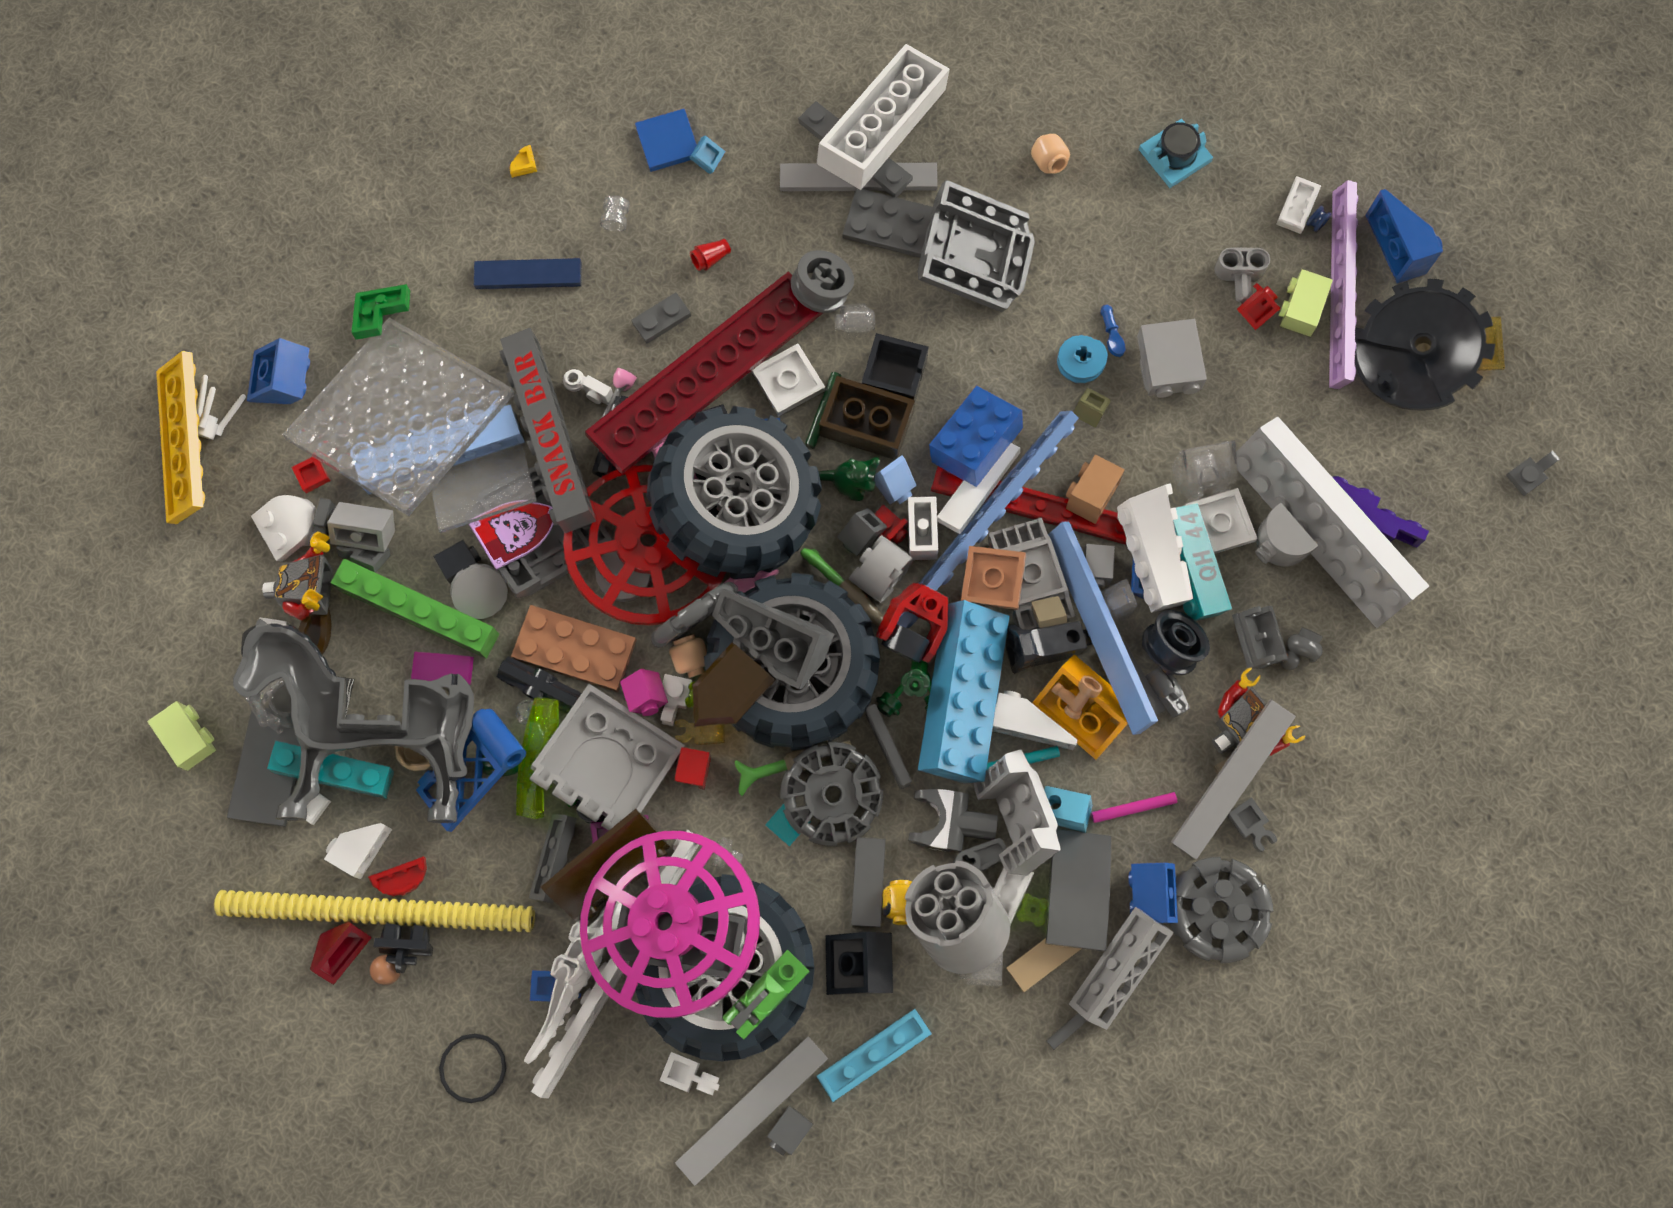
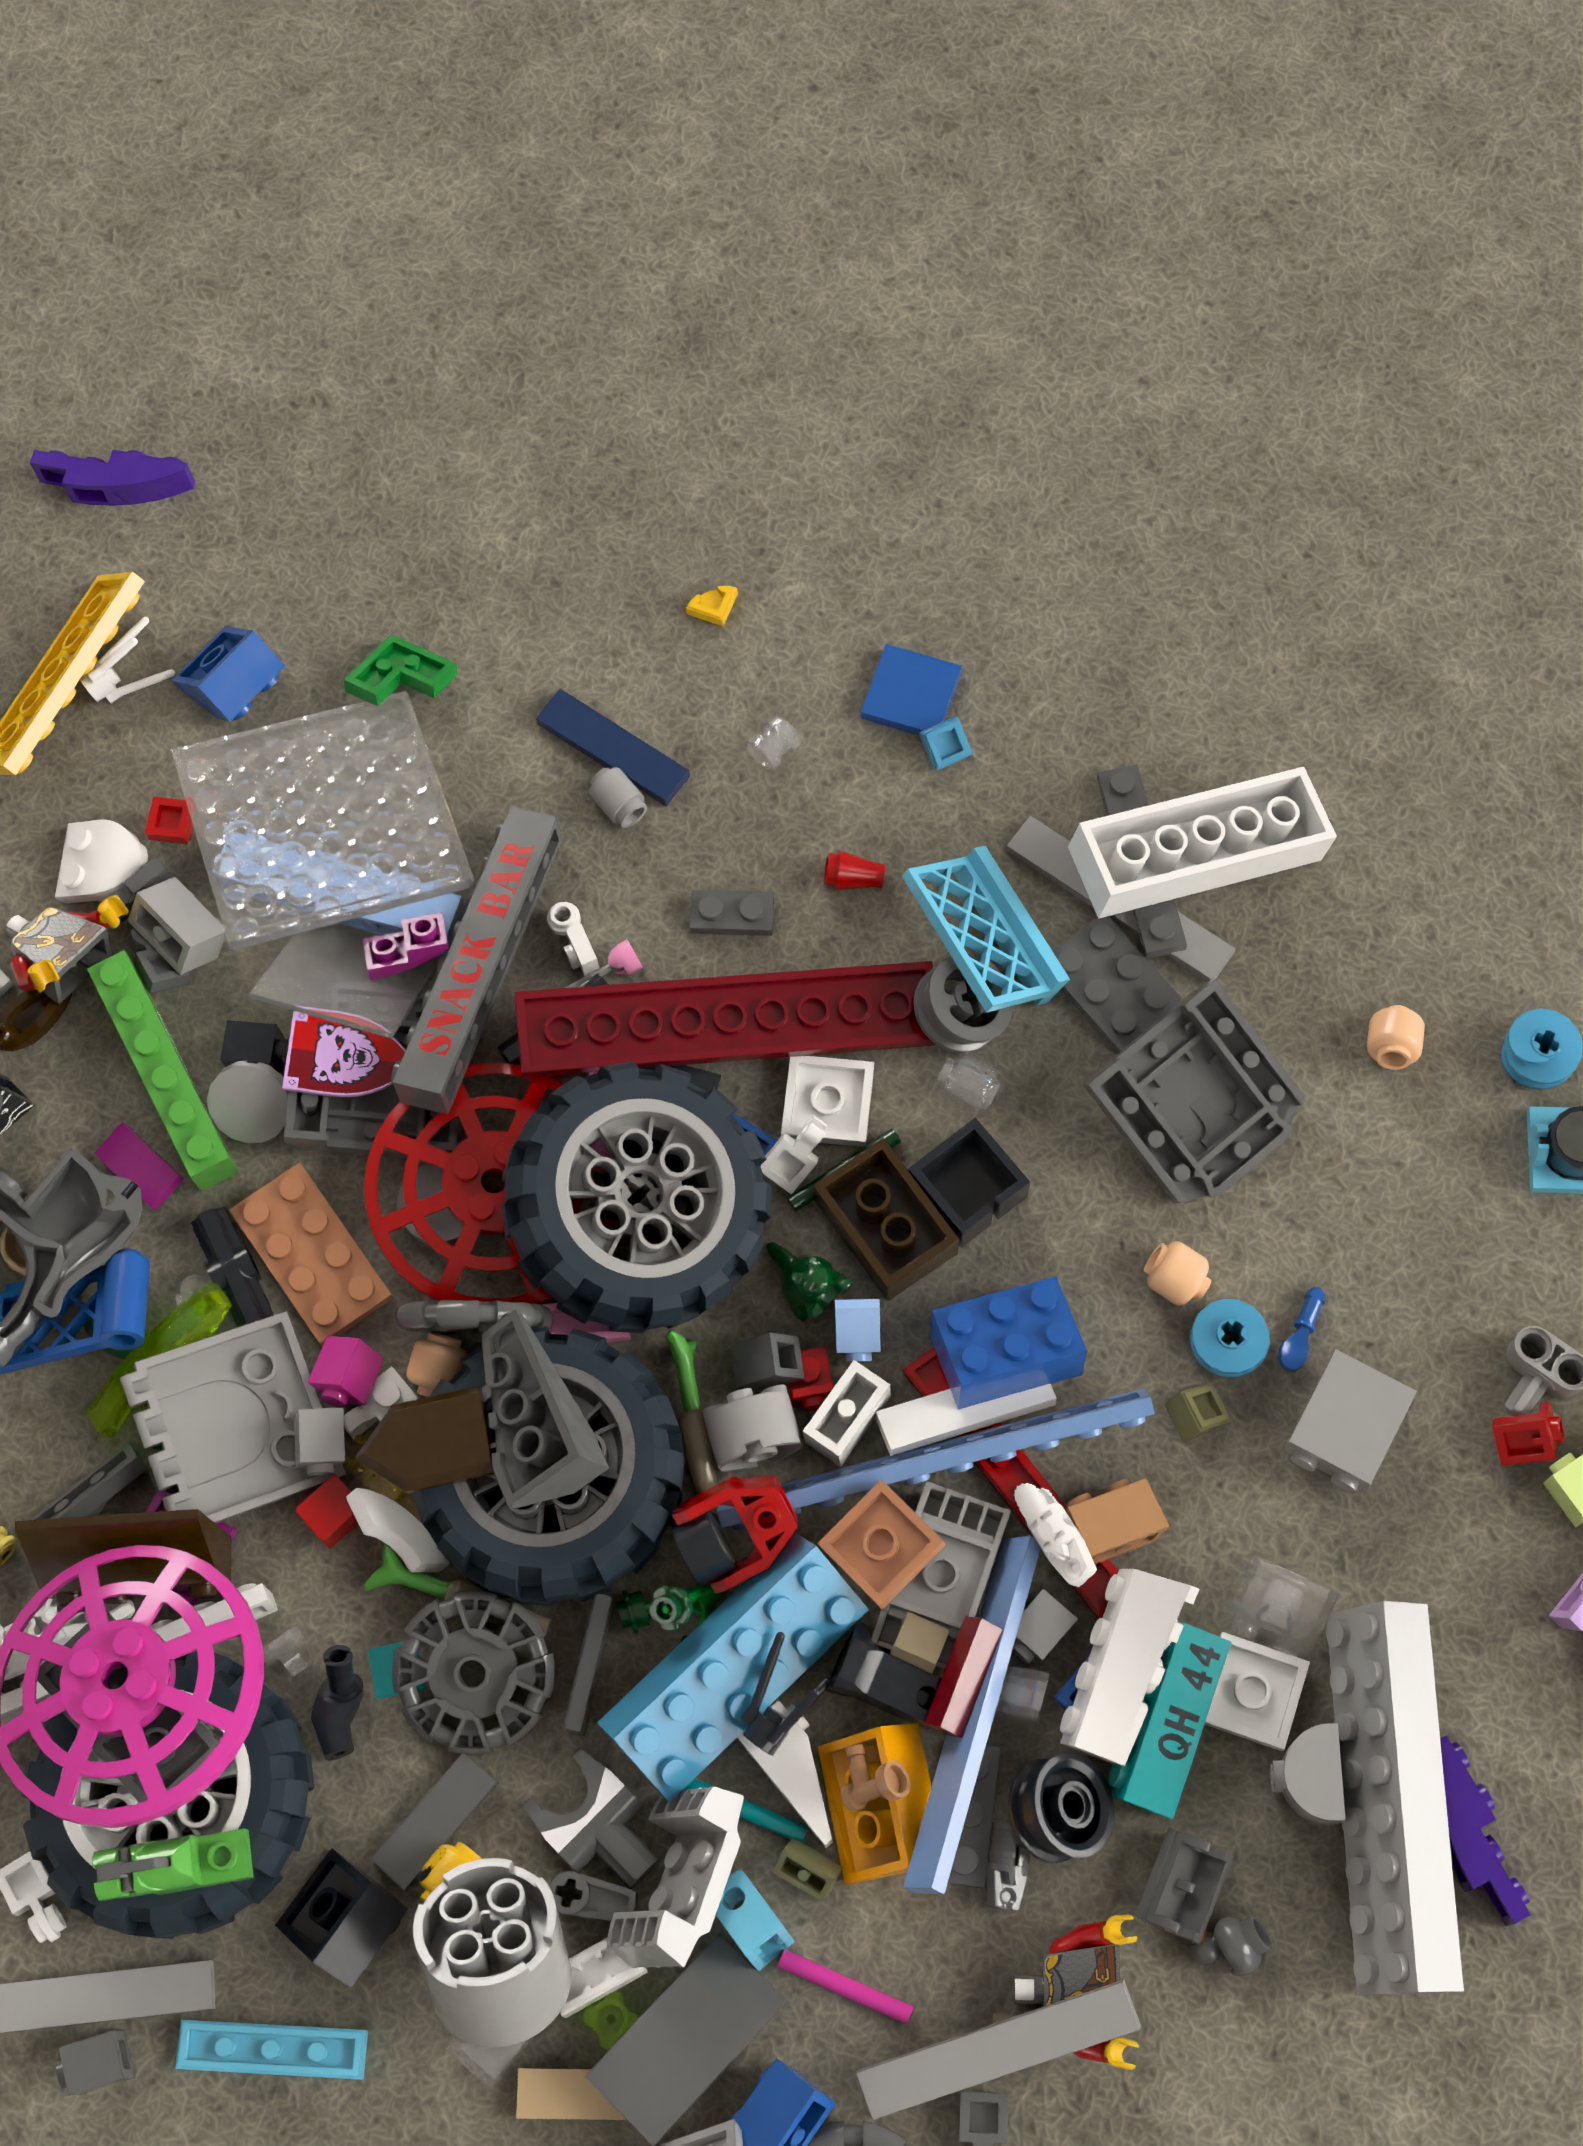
camera: 40 degrees right, 5 degrees down
(129, 308) = (124, 480): none -> dark purple slope
(507, 445) = (400, 951): none -> magenta slope
(552, 297) = (617, 797): none -> light grey brick
(660, 735) = (319, 1440): none -> light grey brick
(736, 751) = (398, 1528): none -> white tile
(772, 861) = (337, 1703): none -> black arm
(795, 417) = (792, 1159): none -> white plate
(803, 223) = (1001, 919): none -> medium azure fence
(1008, 706) = (770, 1727): none -> black plant
(1032, 344) = (1177, 1273): none -> light nougat head
(1074, 765) = (807, 1869): none -> olive piece
(1075, 511) = (1055, 1534): none -> white hinge
(1083, 612) = (963, 1677): none -> dark red piece
(1125, 112) = (1522, 1055): none -> dark azure piece

